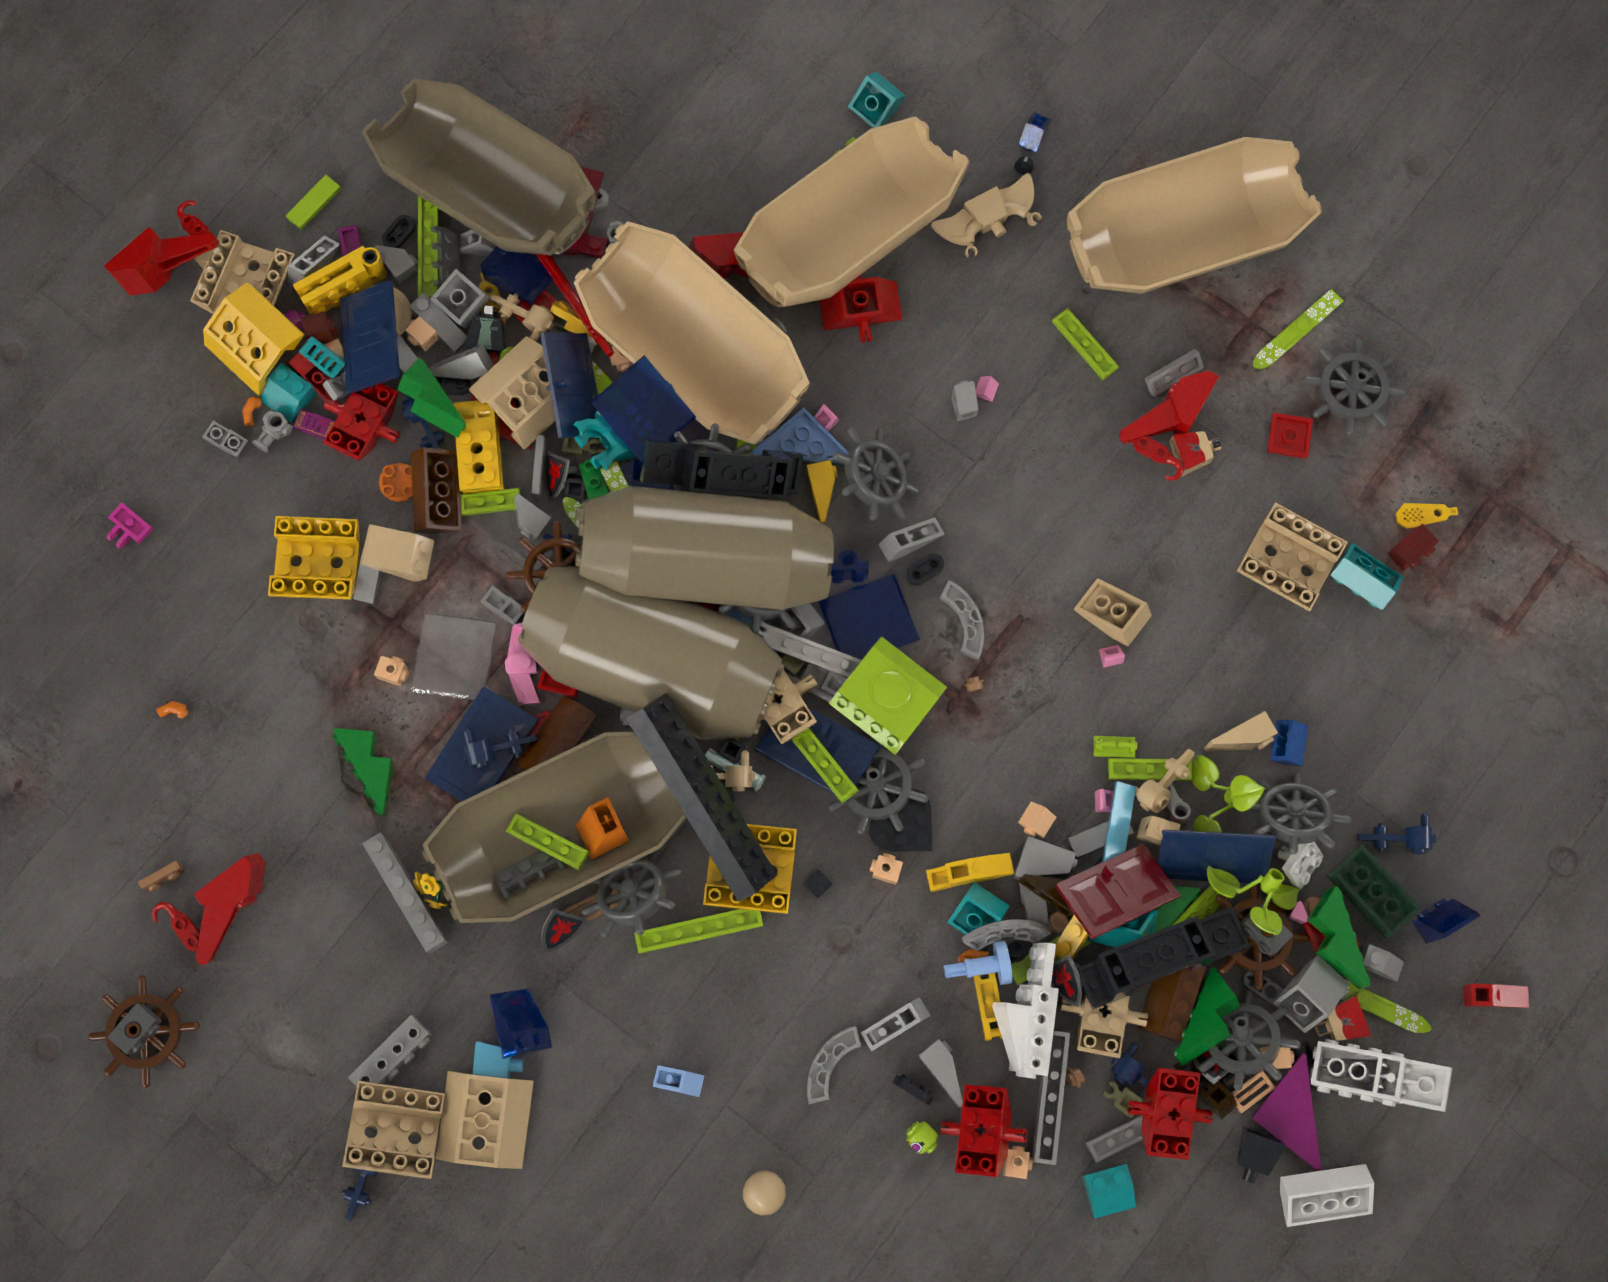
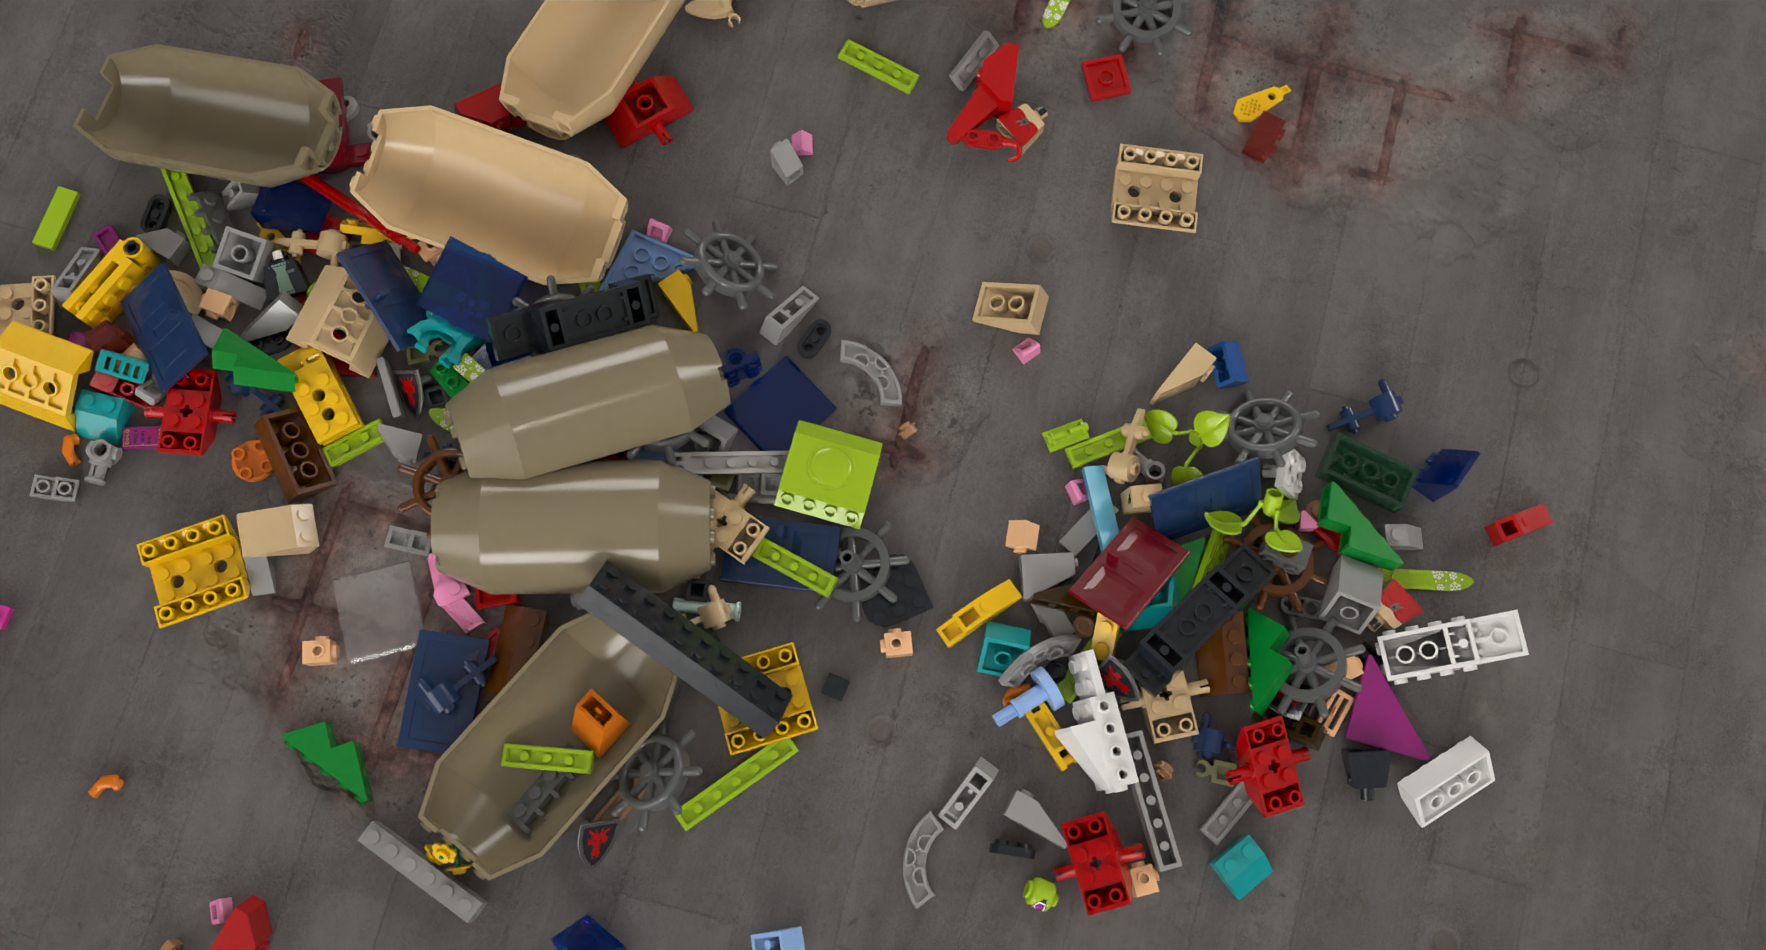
camera: 25 degrees left, 0 degrees up
(226, 855) = (221, 910): none -> bright pink slope
(1367, 576) = (1233, 180): slope -> none

